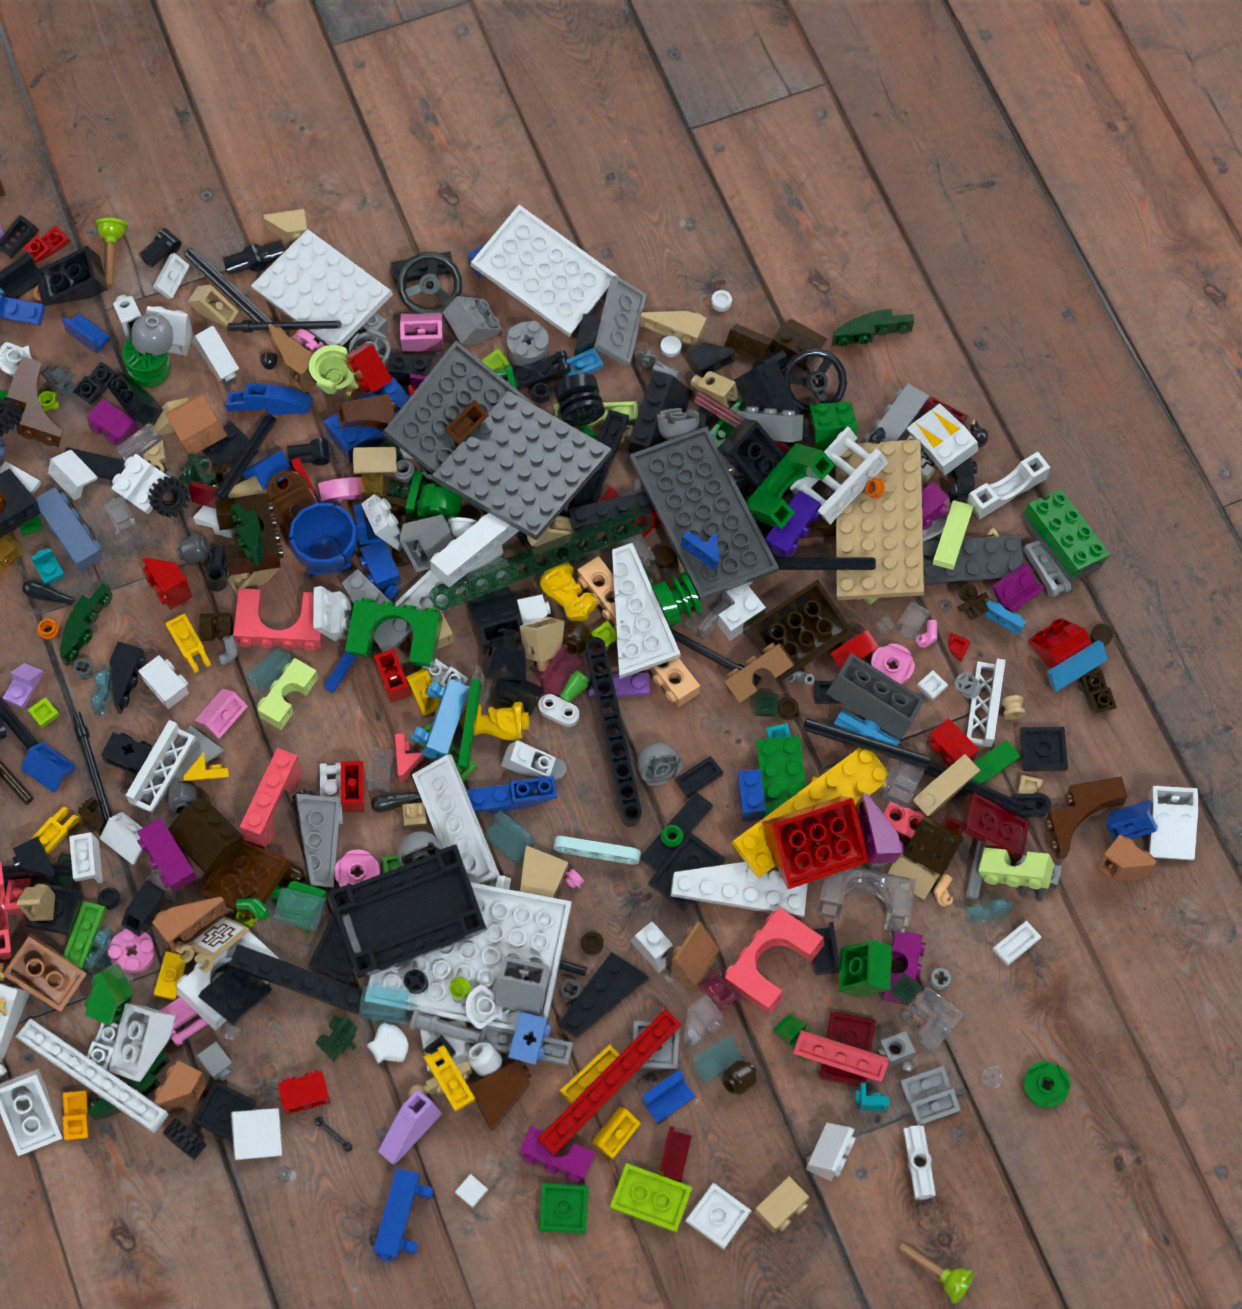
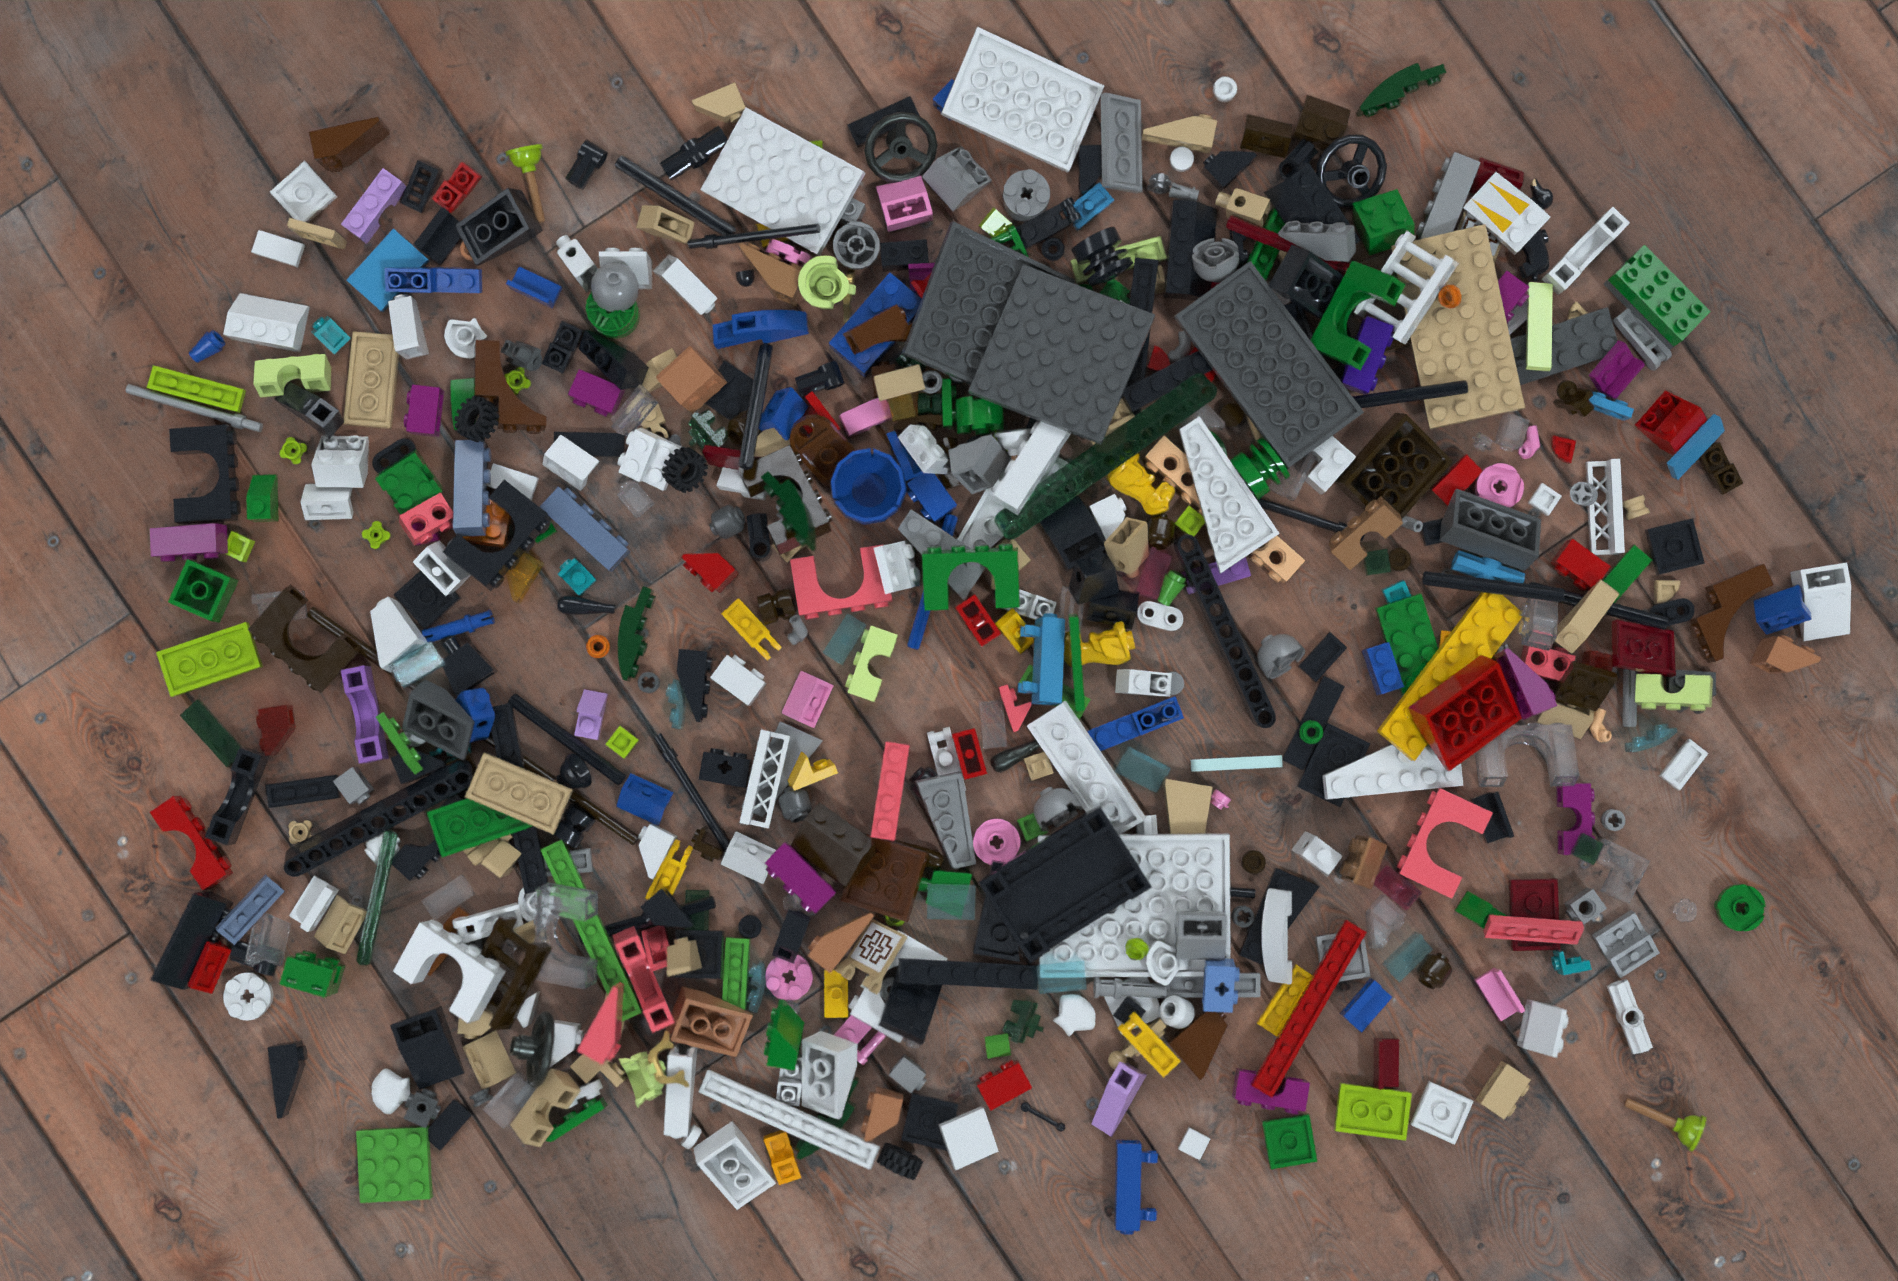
camera: 15 degrees left, 20 degrees up
(42, 806) = (654, 847): none -> white slope
(85, 857) = (714, 893): white panel -> none
(171, 276) = (608, 197): white plate -> none
(255, 906) = (906, 912): green arm -> none
(308, 1055) = (997, 1046): none -> bright green tile
(368, 368) = (863, 273): red brick -> none
(412, 978) = (1088, 955): black wheel -> none
(466, 421) = (990, 319): reddish brown slope -> none
(593, 1009) = (1275, 936): none -> white slope
(615, 1132) = (1321, 1051): yellow slope -> none
(705, 552) = (1287, 417): blue slope -> none
(797, 1114) = (1499, 994): none -> bright pink panel
(865, 968) = (1540, 834): green brick -> none
(878, 435) = (1435, 227): black piece -> none
(1102, 633) = (1712, 401): dark brown tile -> none

